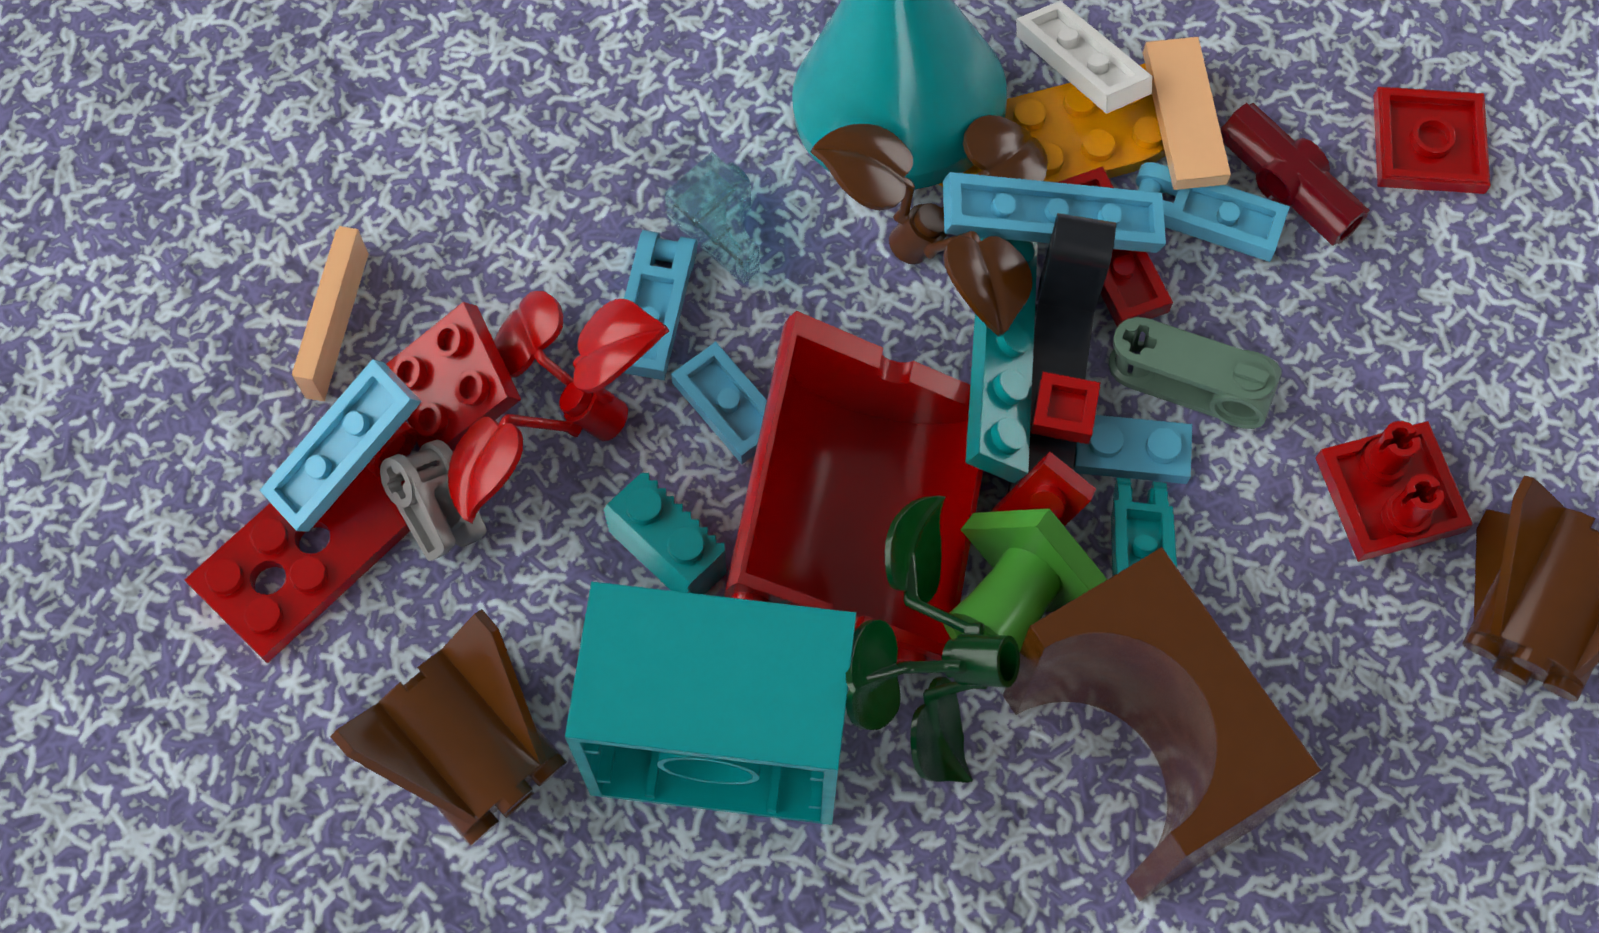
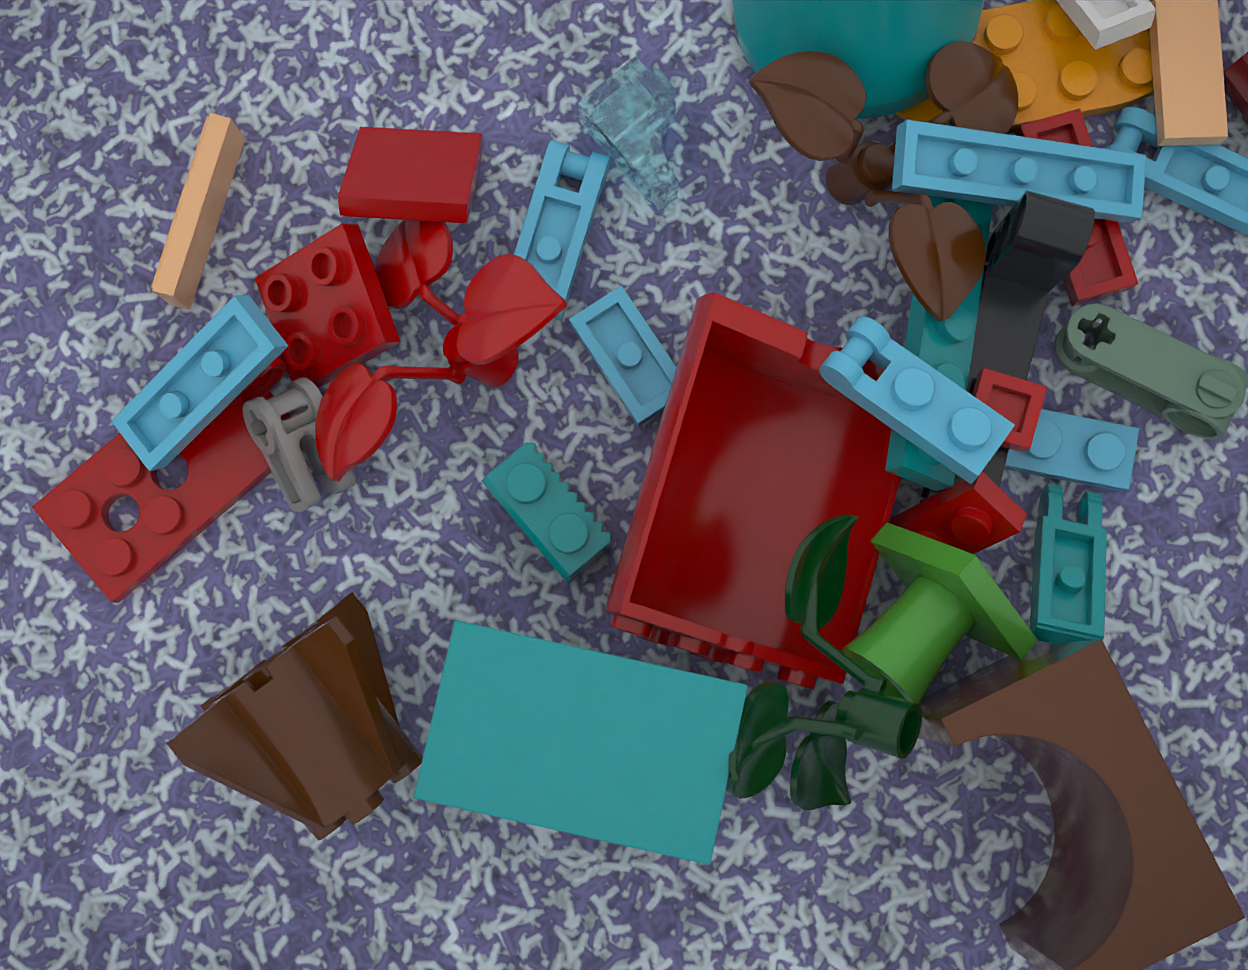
camera: 10 degrees right, 15 degrees up
(521, 264) = (411, 175): none -> red tile
(984, 395) = (916, 400): none -> medium azure plate

